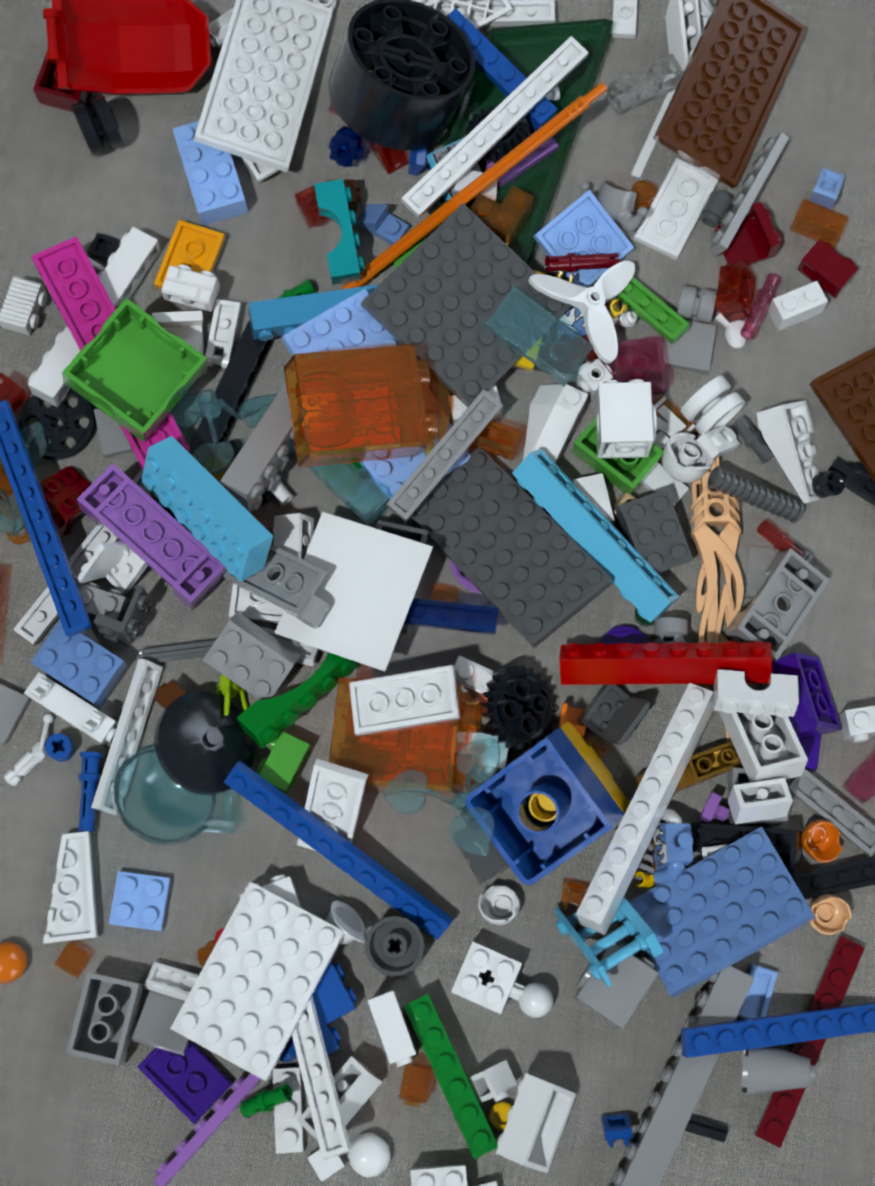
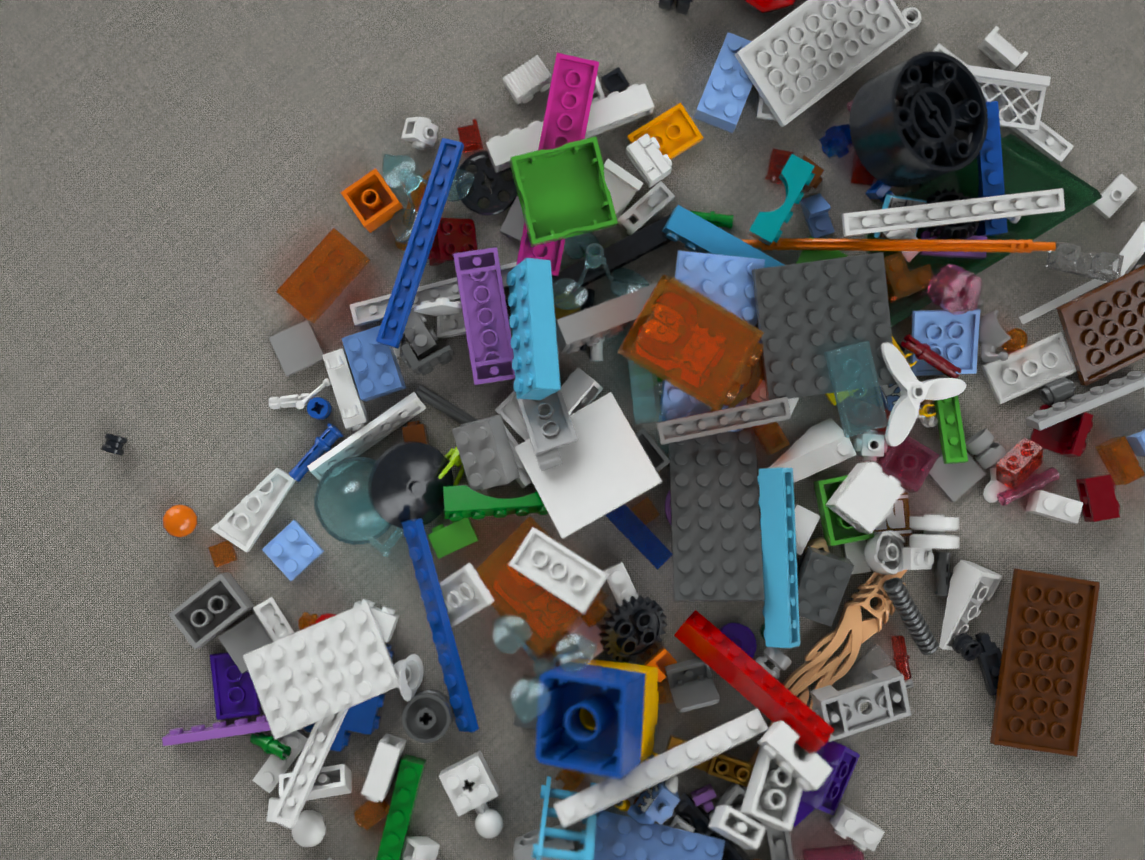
camera: 40 degrees right, 10 degrees up
(499, 905) = (515, 743): white hair -> none
(553, 188) = (955, 289): none -> clear pink brick

